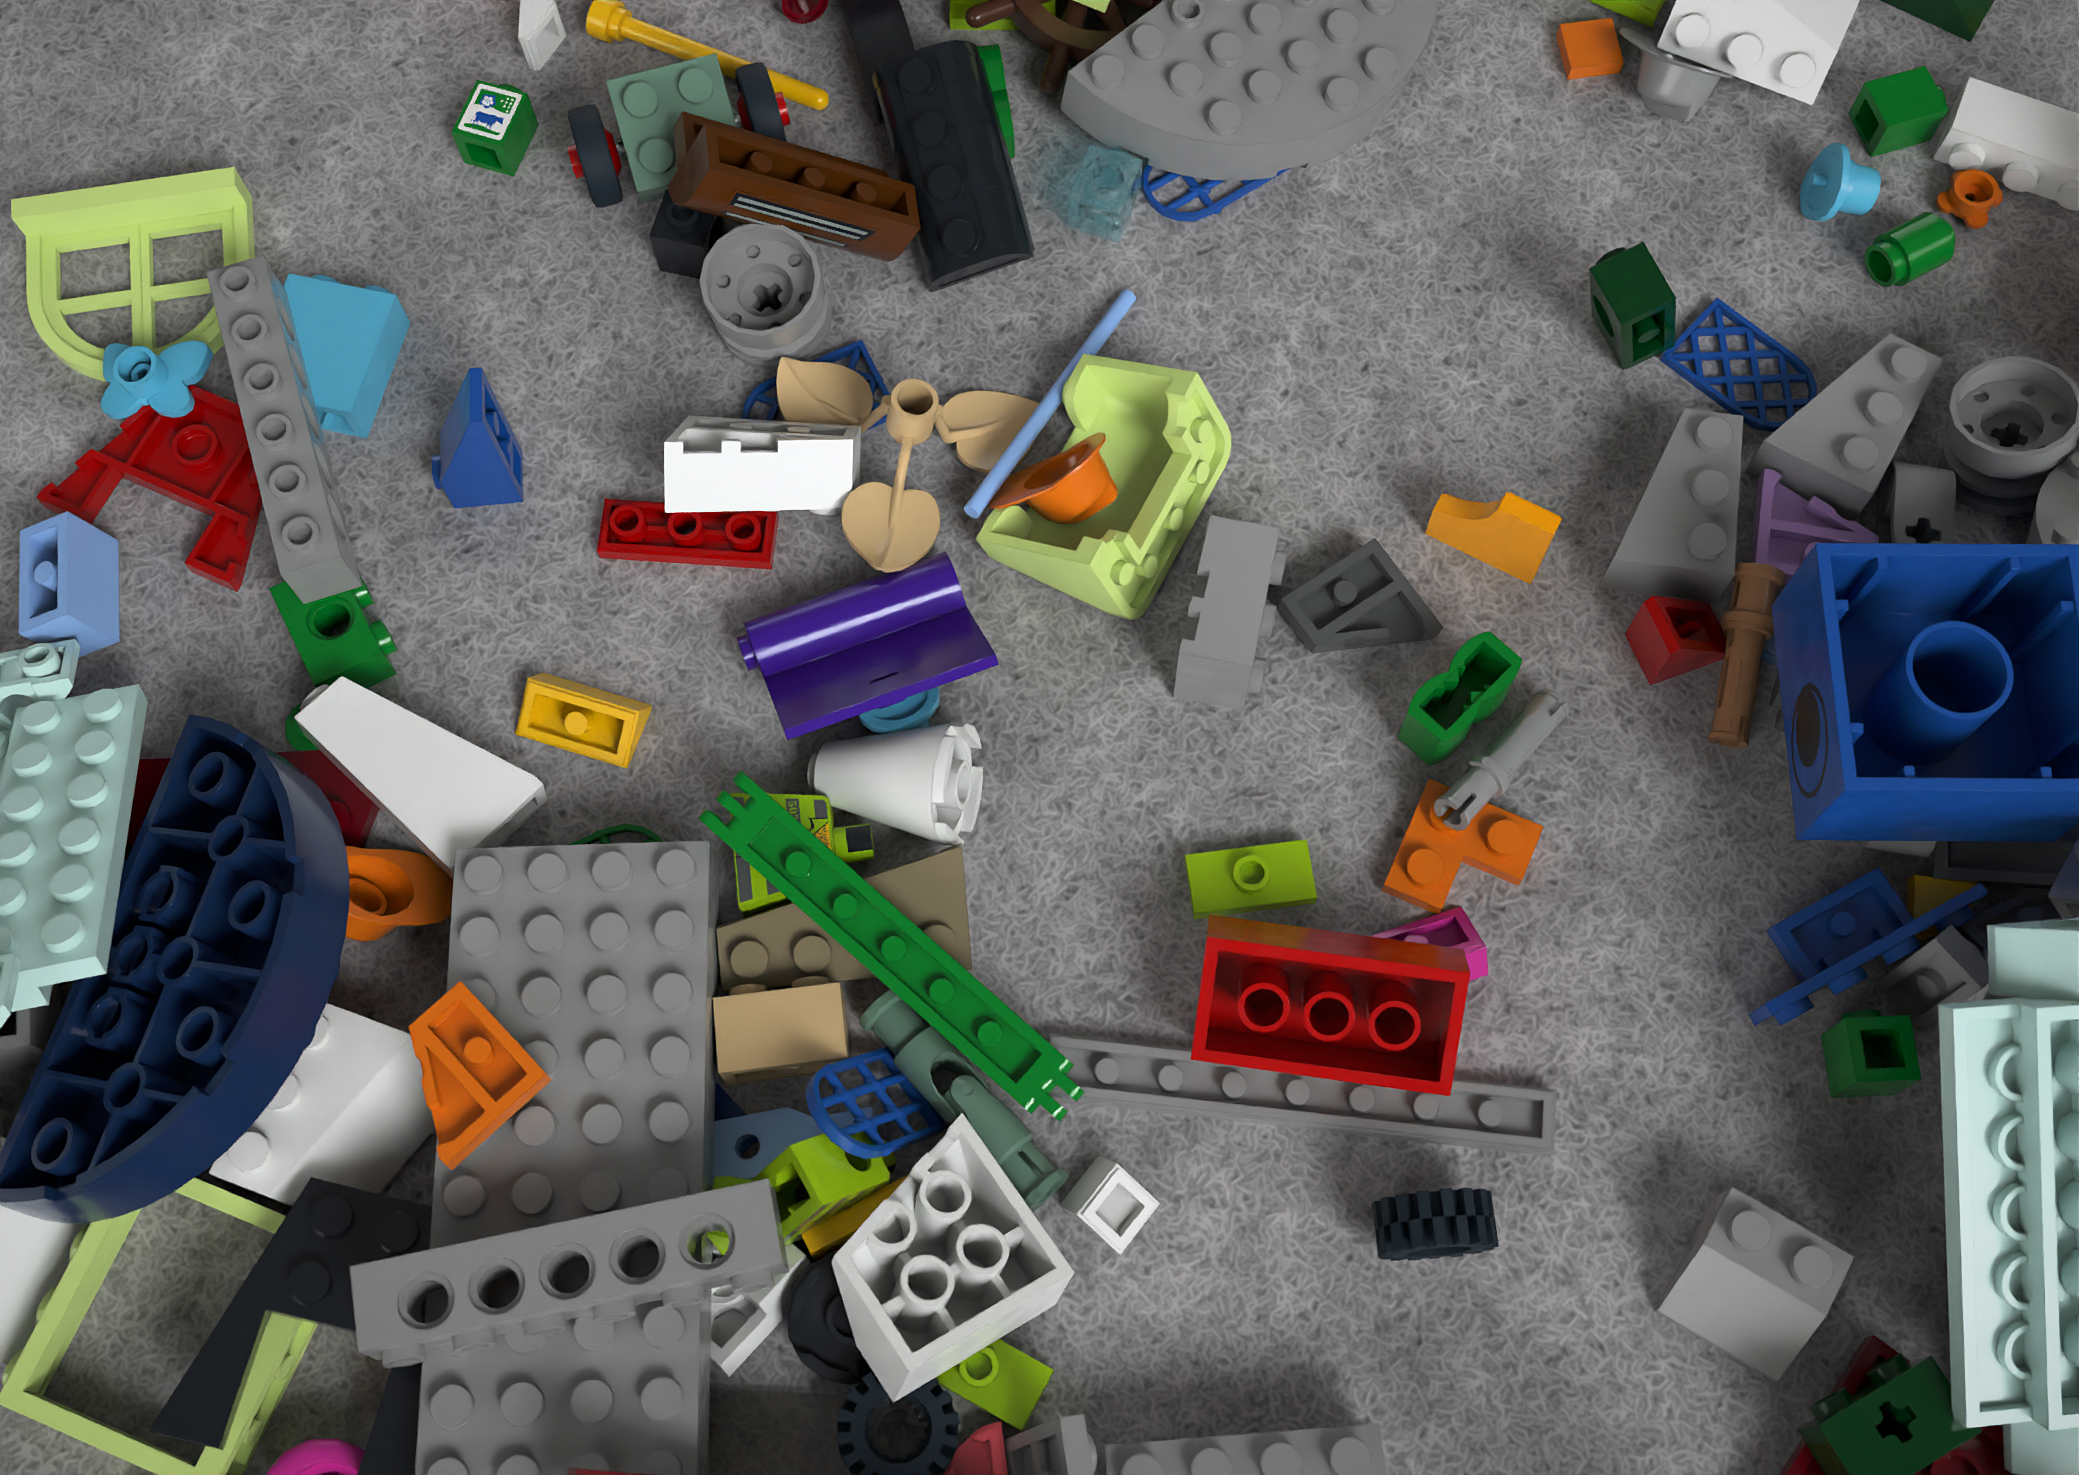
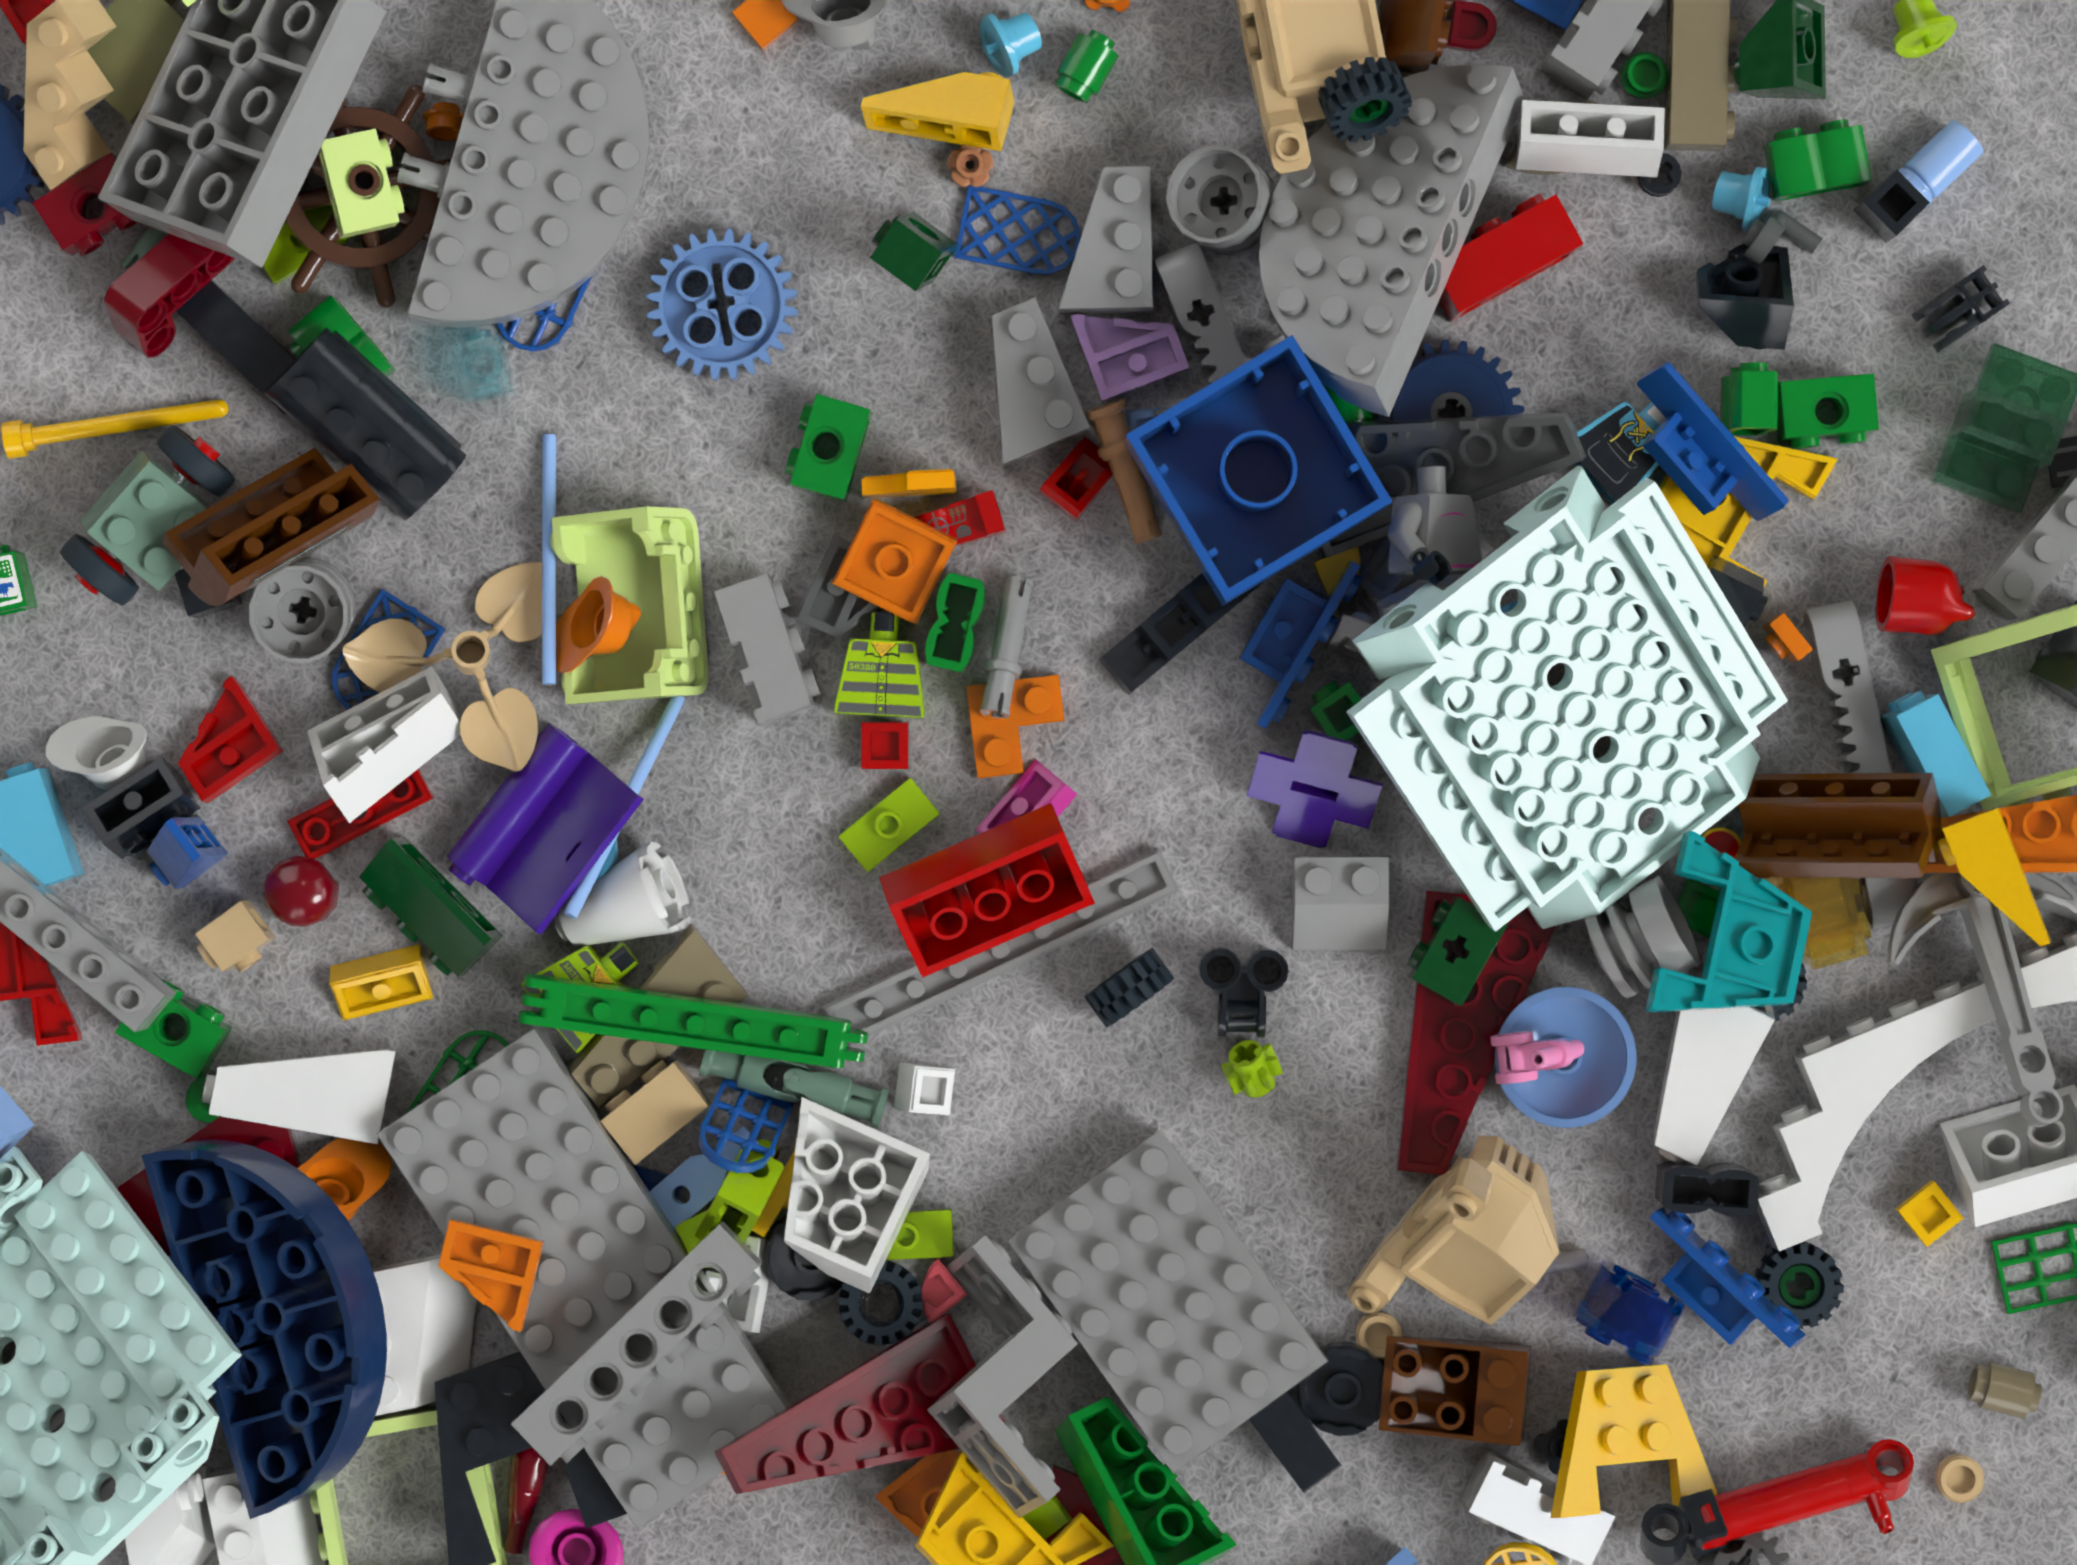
camera: 30 degrees left, 20 degrees up
(328, 1389) = (524, 1490): none -> dark red piece
(435, 376) = (138, 808): none -> black brick
(465, 576) = (234, 938): none -> tan brick
(471, 328) = (99, 749): none -> white piece
(567, 574) = (300, 891): none -> dark red hair
(599, 394) = (228, 744): none -> red wing
(687, 659) = (428, 907): none -> dark green slope
(1006, 658) = (635, 783): none -> light blue axle
(1298, 788) = (884, 745): none -> red plate
(1338, 711) = (881, 674): none -> torso
(1341, 248) = (764, 297): none -> medium blue gear
(1408, 483) = (831, 476): none -> green brick
(1429, 595) = (894, 561): none -> orange plate
(1522, 607) = (968, 519): none -> red leg
(1533, 1424) = (1252, 1068): none -> lime gear
(1570, 1324) = (1242, 991): none -> black piece
(1717, 851) = (1166, 633): none -> black slope
(1729, 291) = (979, 174): none -> nougat plate
(1733, 208) = (950, 109): none -> yellow slope
(1787, 1114) = (1309, 788): none -> piece

